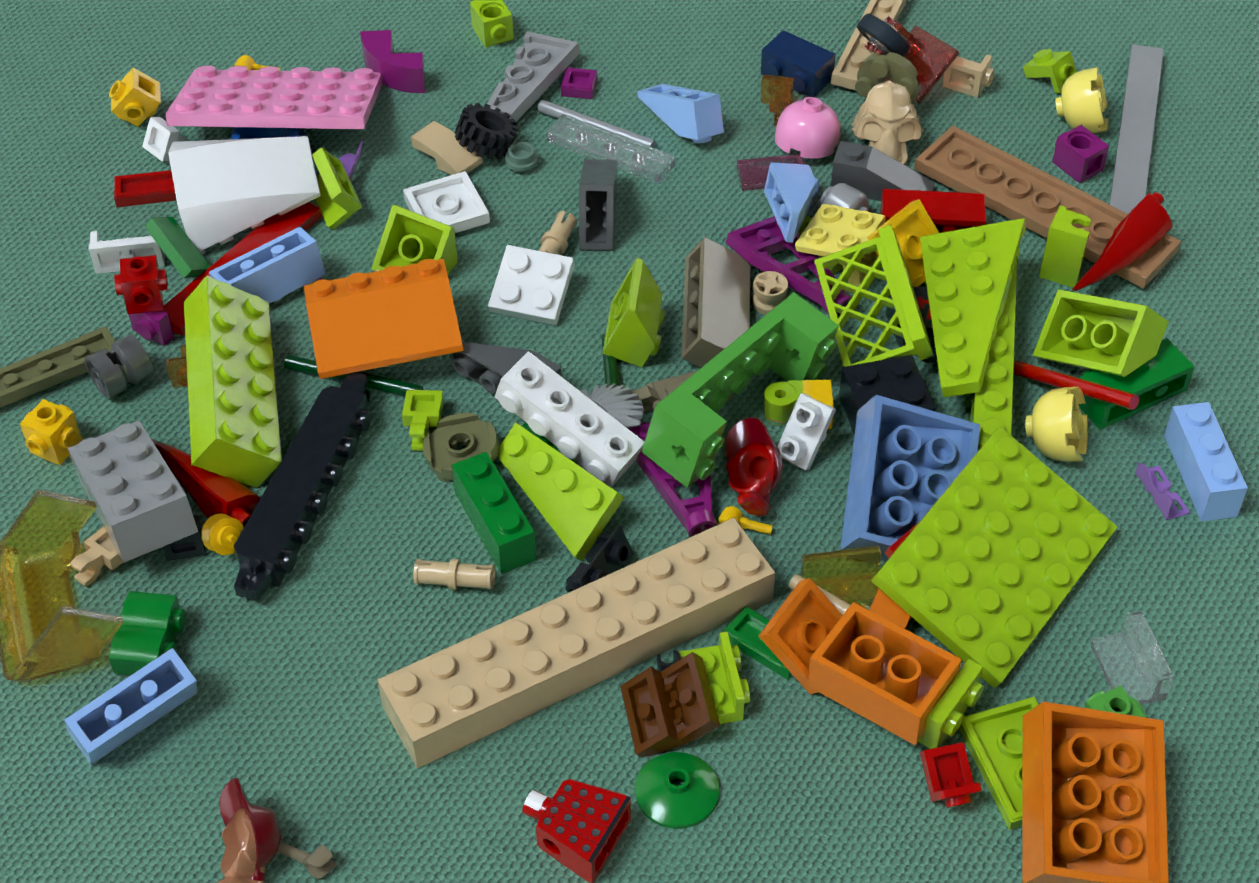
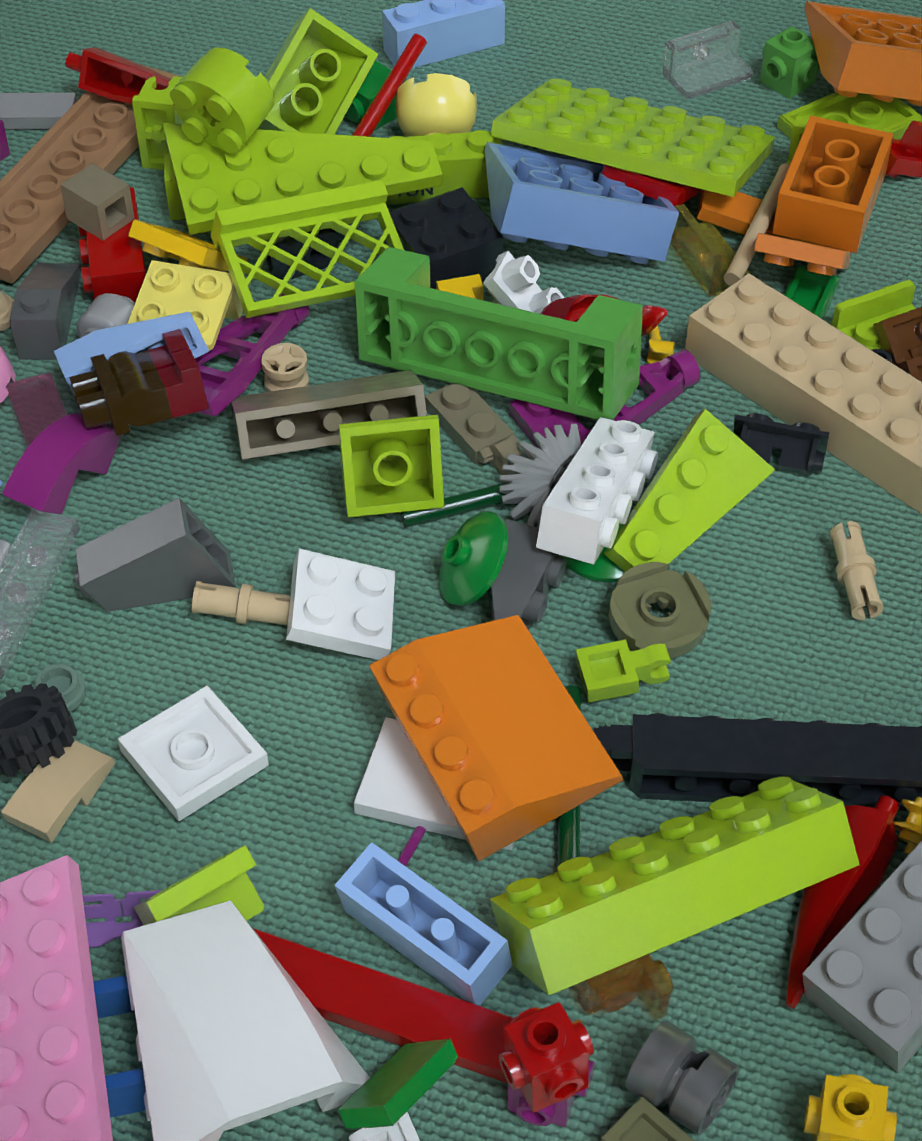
camera: 105 degrees left, 0 degrees up
(414, 238) = (310, 758): lime slope -> none
(494, 512) = (757, 544): green brick -> none
(539, 341) = (473, 558): none -> green dish
(709, 163) = (53, 459): none -> magenta brick
(748, 192) = (141, 386): none -> dark brown hips
(952, 187) = (97, 201): none -> dark tan brick
(1009, 228) = (222, 100): none -> lime brick
(1159, 490) = (498, 58): medium lavender piece -> none

